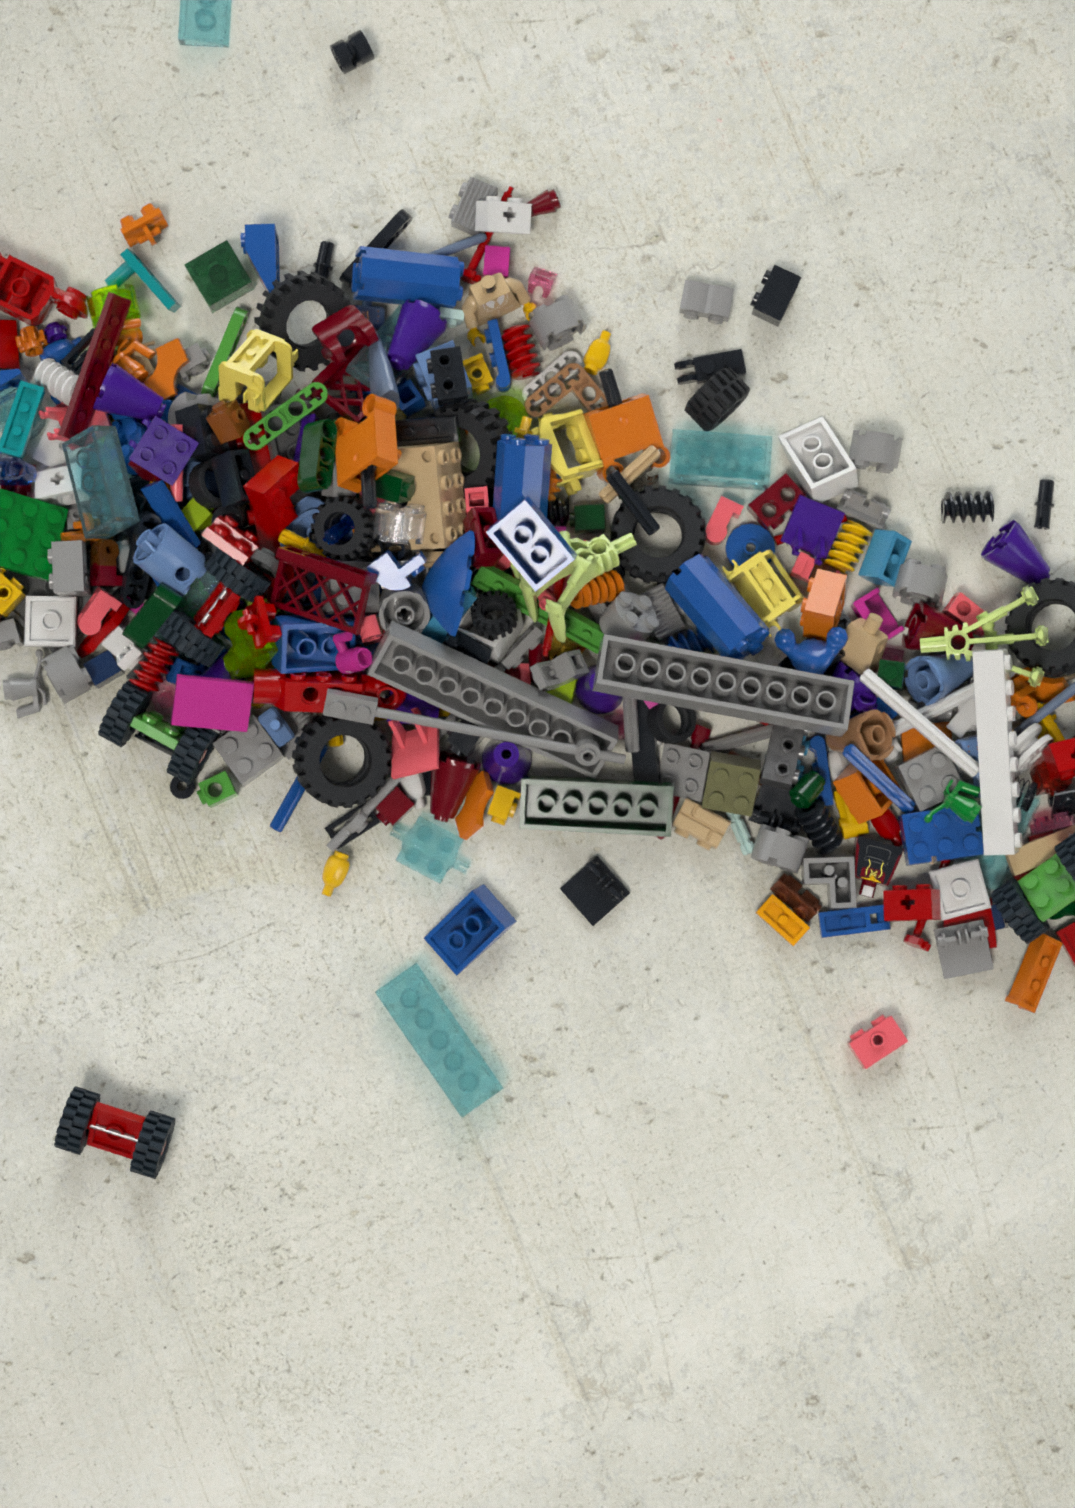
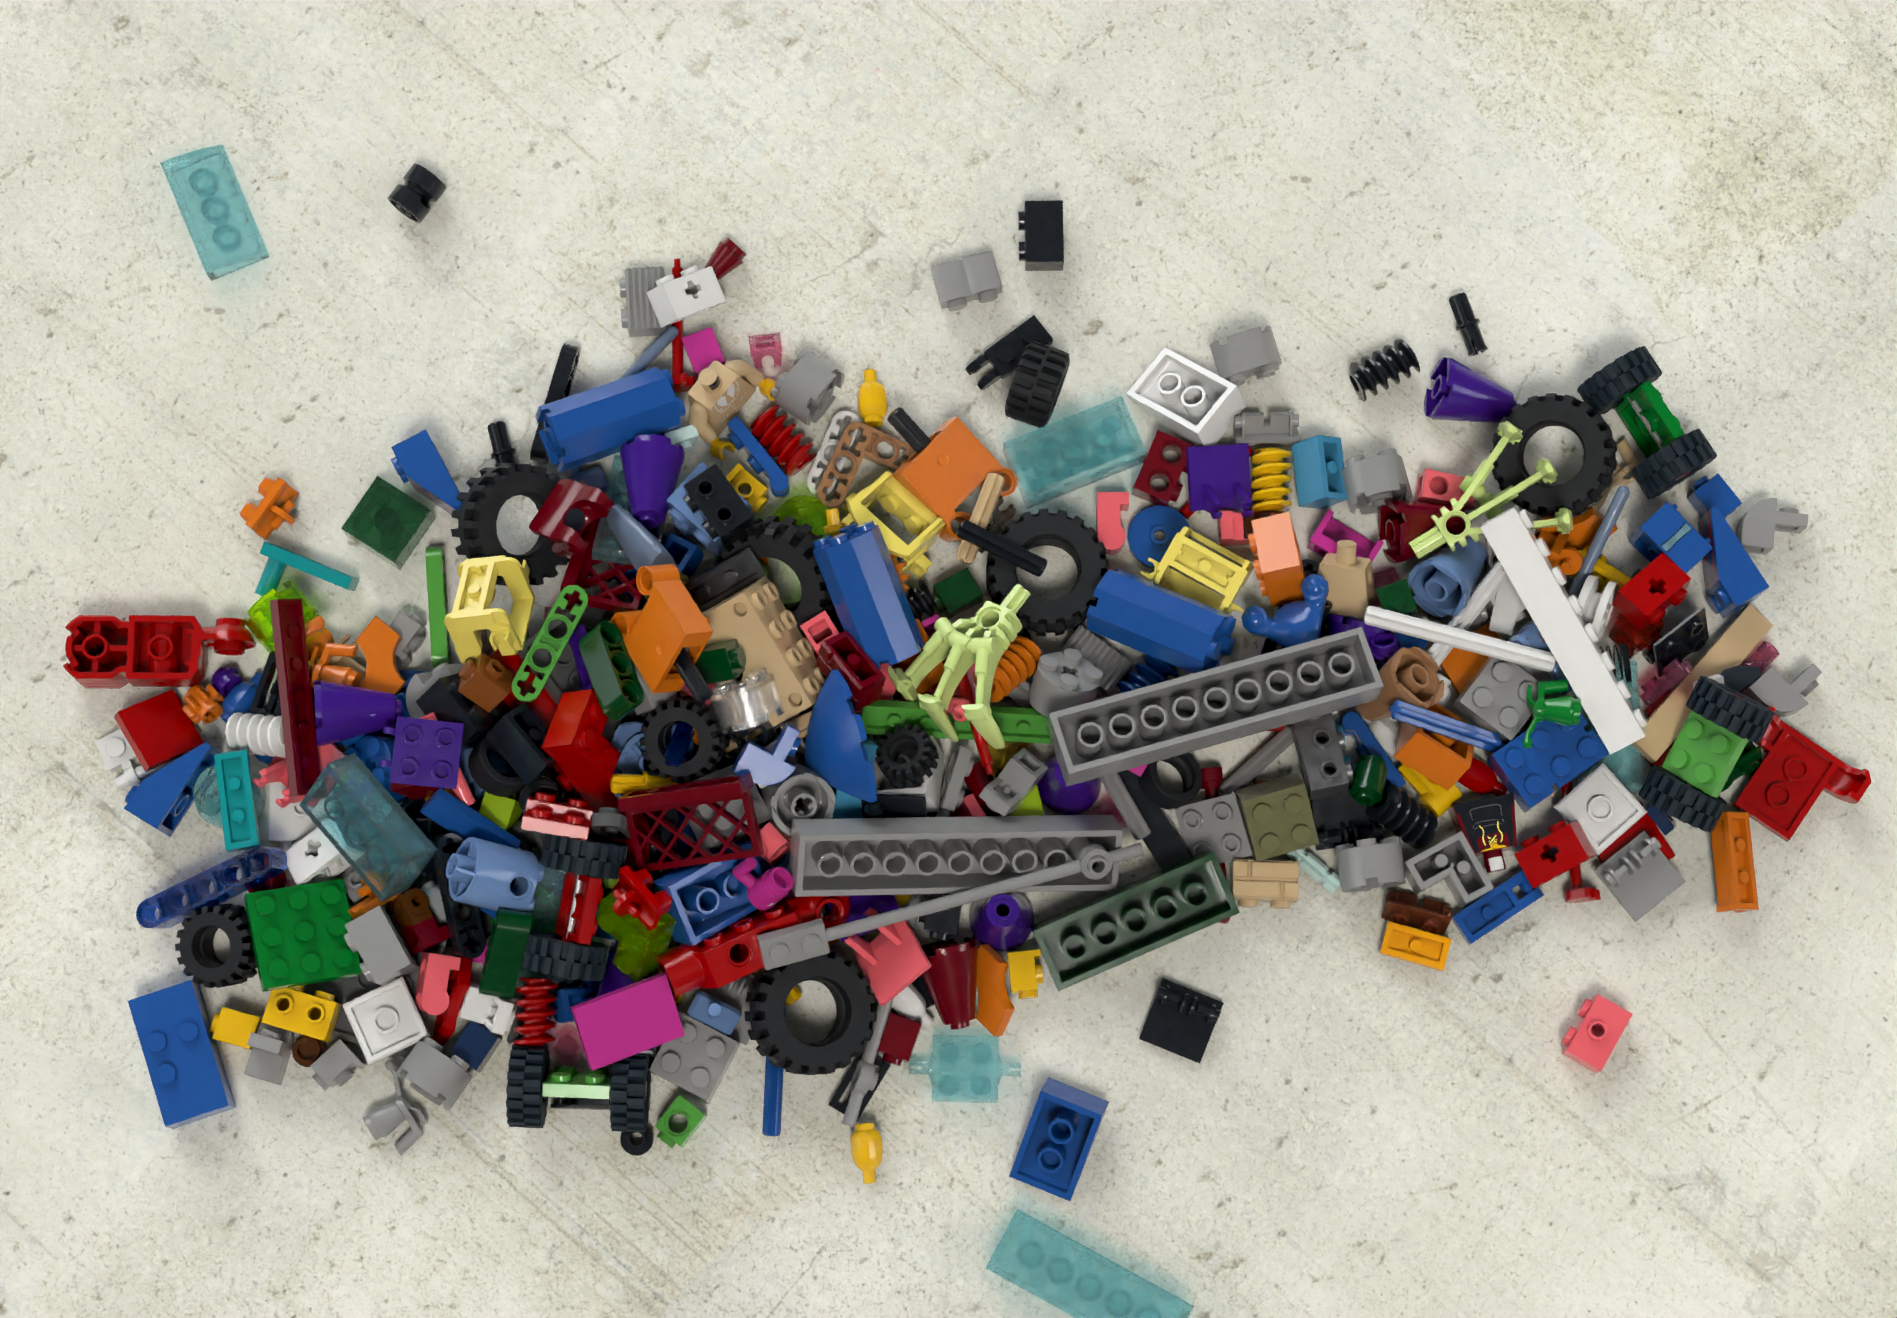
camera: 25 degrees left, 5 degrees down
(531, 543) = (913, 649): brick -> none

